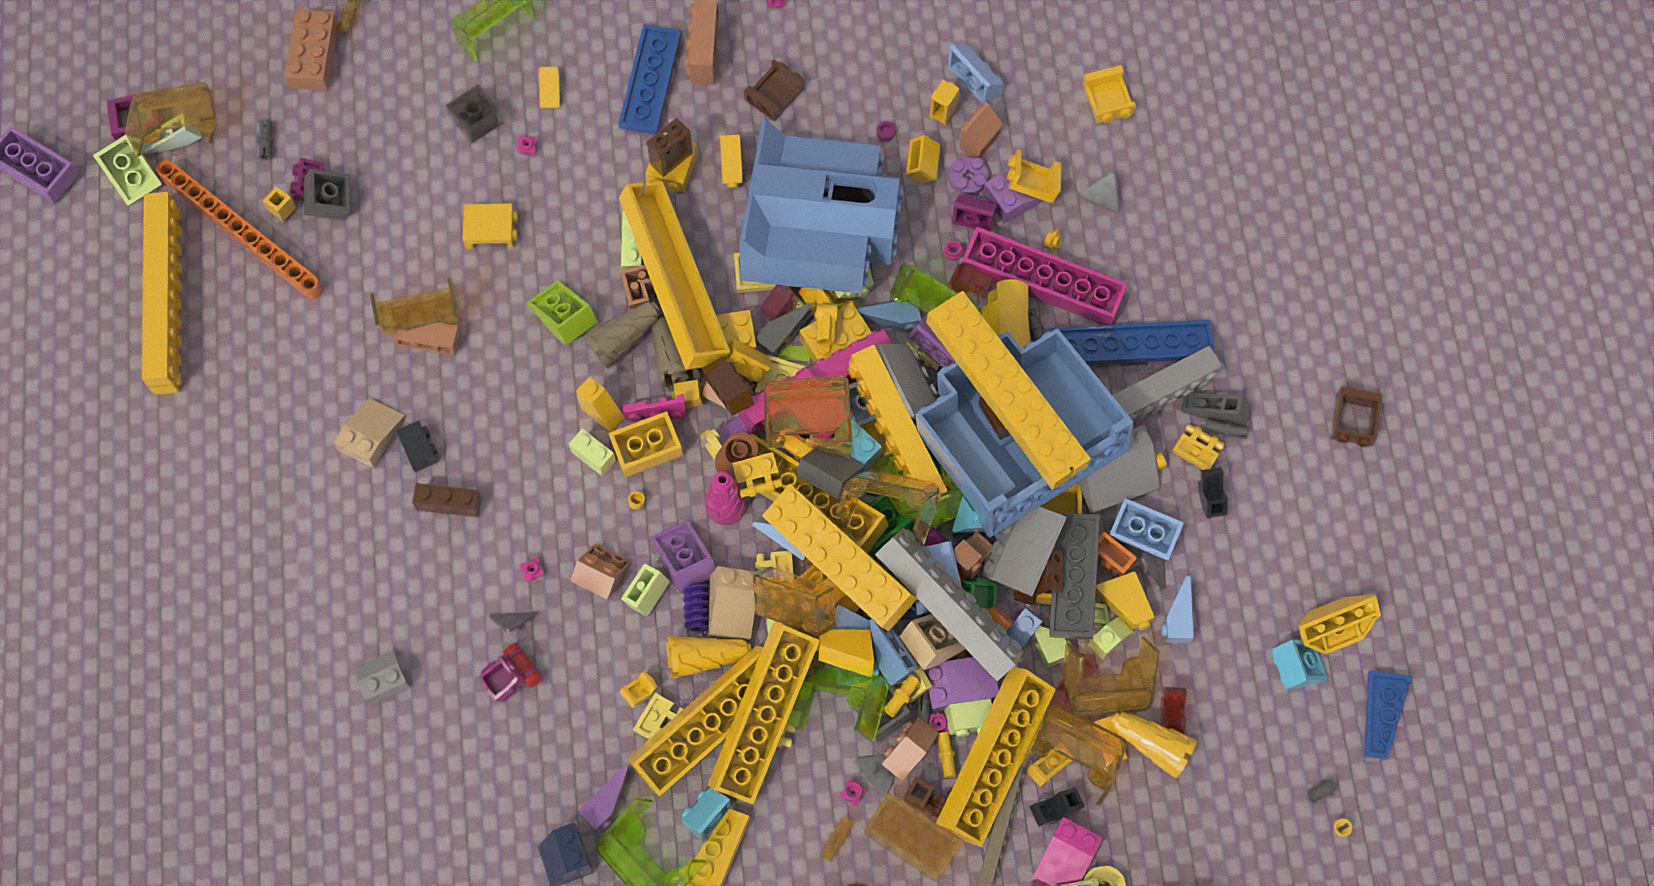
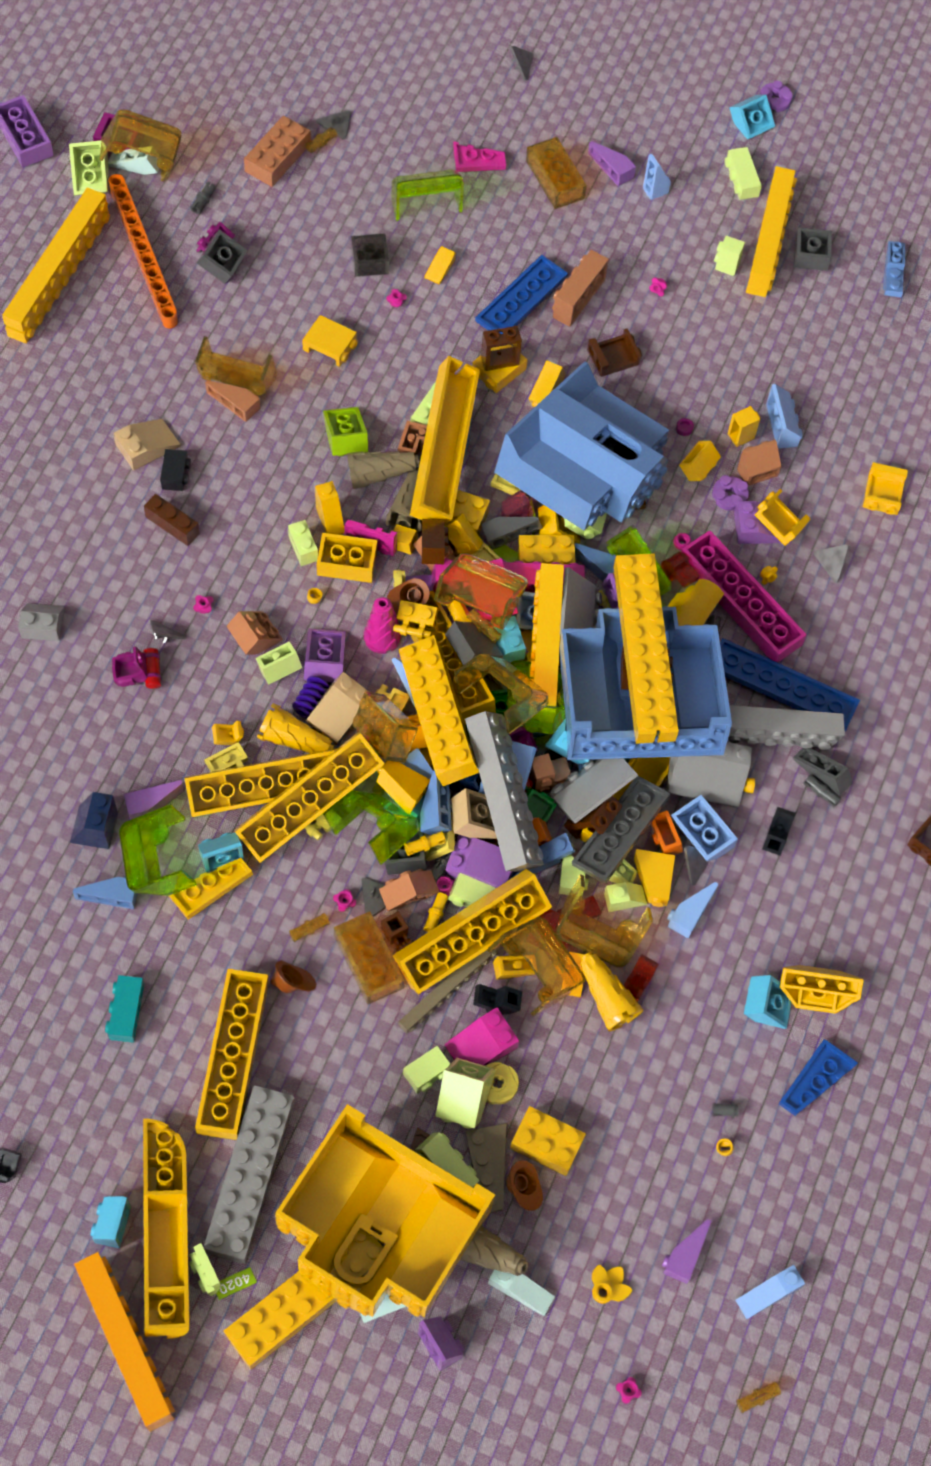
camera: 25 degrees right, 5 degrees down
(279, 204) = (183, 246): yellow brick -> none
(826, 319) = (544, 534): yellow piece -> none
(973, 212) = (713, 517): magenta slope -> none
(1194, 451) = (785, 796): yellow plate -> none

